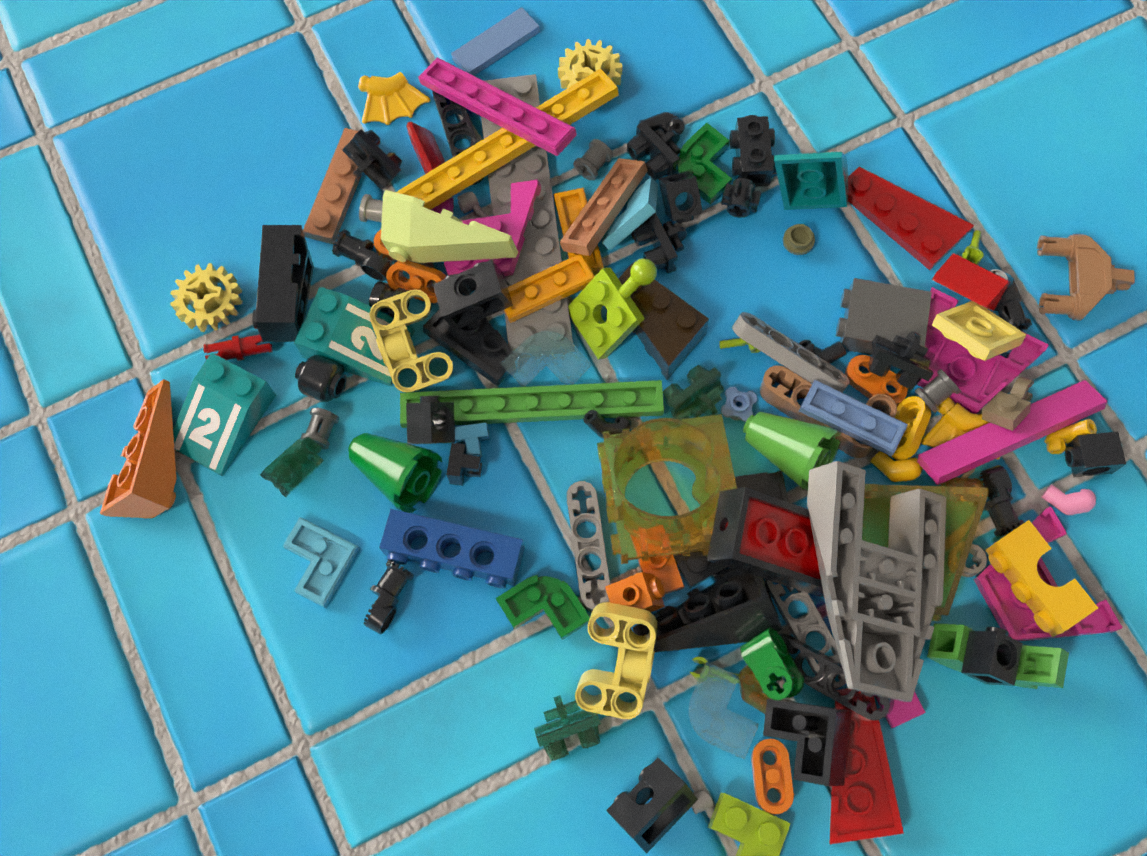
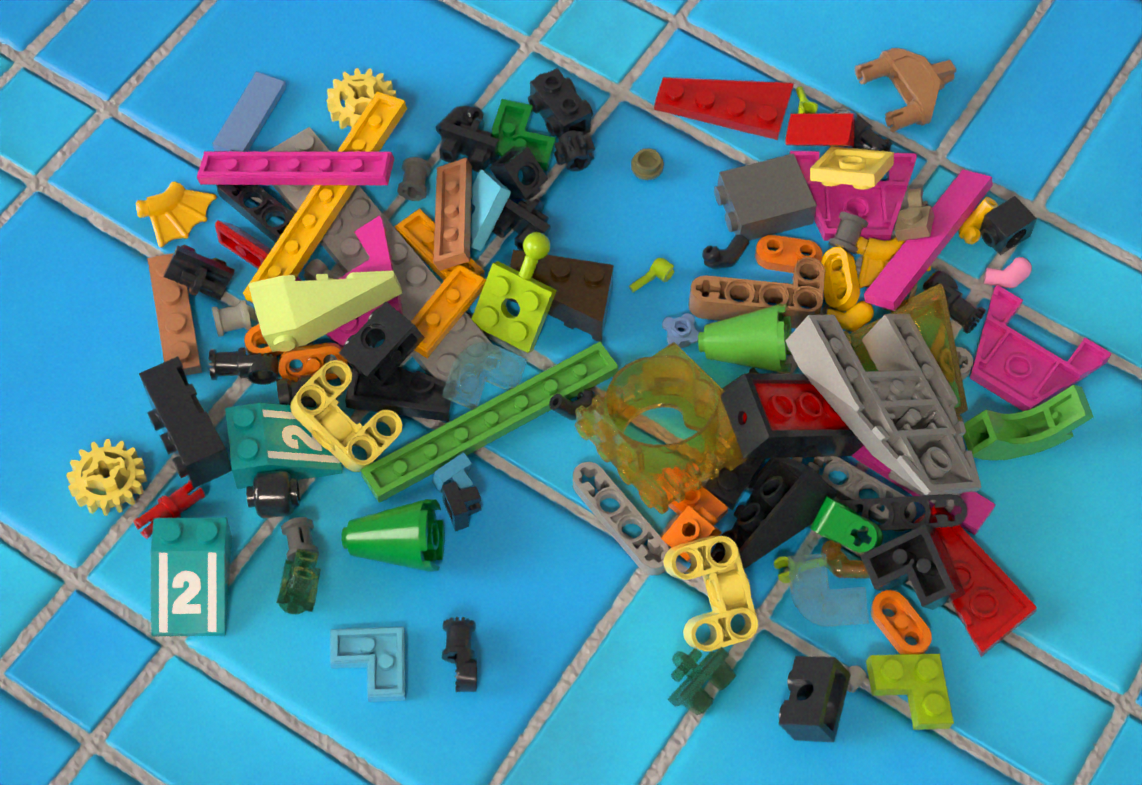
camera: 35 degrees left, 10 degrees down
(150, 468) = (147, 659): orange wedge -> none
(405, 527) = (509, 565): blue brick -> none
(430, 421) = (412, 474): black brick -> none
(546, 595) = (610, 578): green plate -> none
(696, 398) = (643, 337): clear green hips -> none
(788, 352) = (702, 262): light grey beam -> none
(813, 180) = (634, 104): teal slope -> none
(853, 418) = (790, 288): medium blue tile -> none
(903, 354) = (814, 221): black hips -> none
(992, 657) = (1023, 423): black brick -> none
(1053, 607) = (1045, 360): yellow arch -> none

